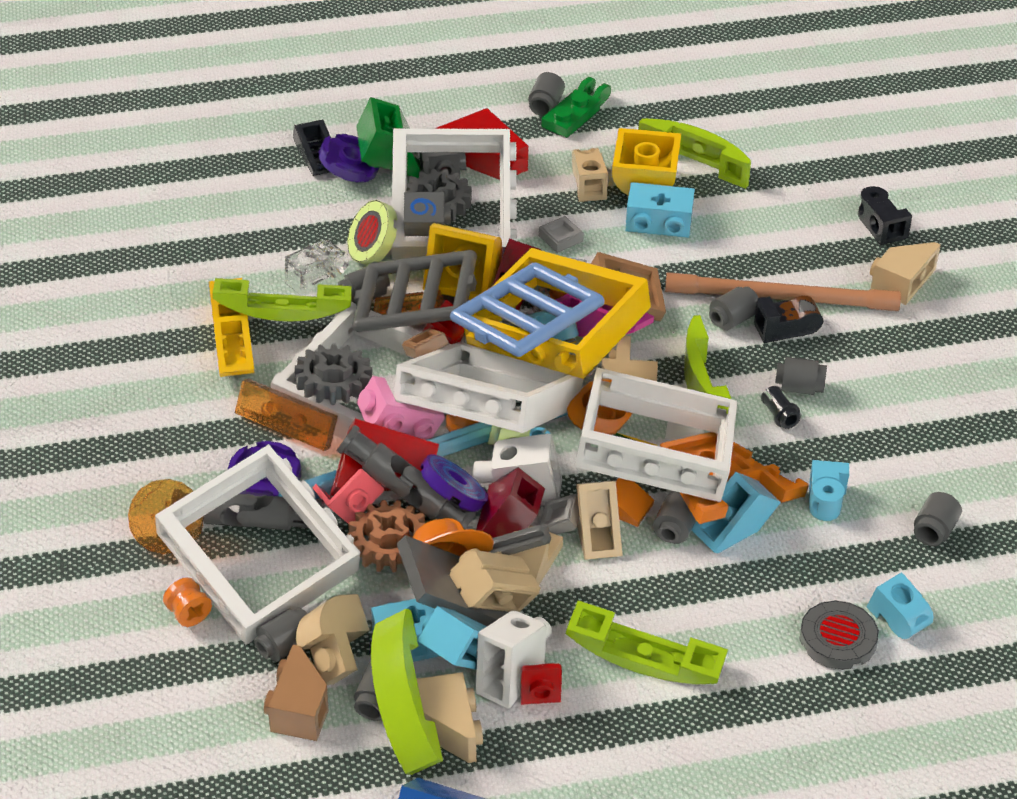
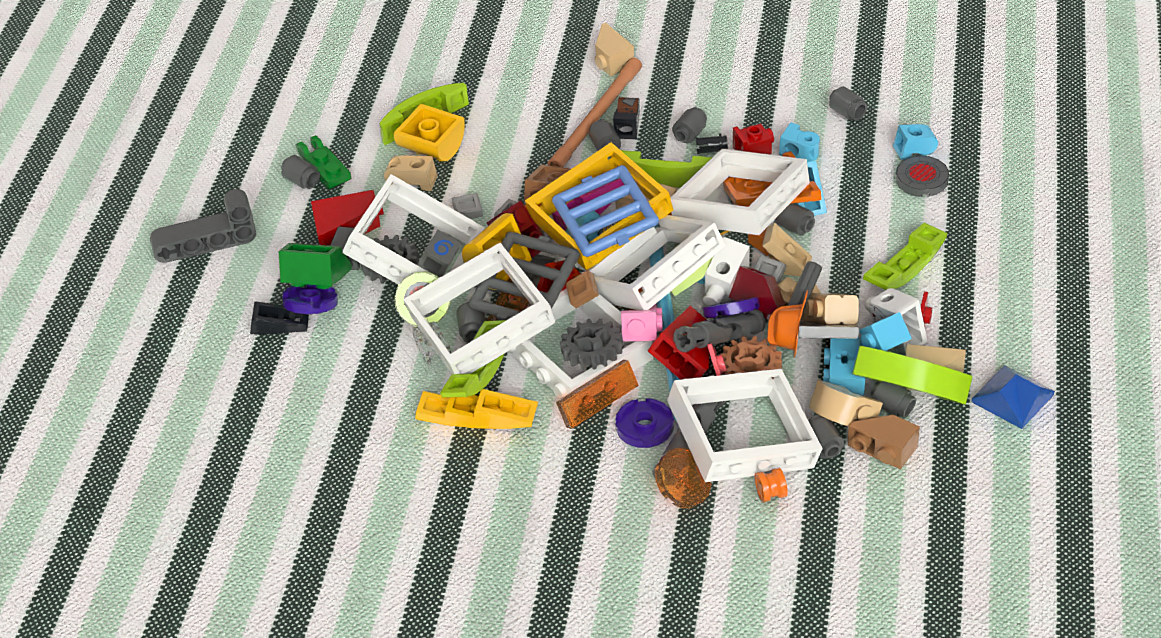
camera: 65 degrees left, 0 degrees up
(271, 277) = (497, 340): none -> white window
(430, 68) = (206, 233): none -> dark grey beam
(660, 209) = (478, 146): medium azure brick -> none
(803, 441) = (753, 139): none -> red brick
(882, 217) = (546, 45): black leg -> none

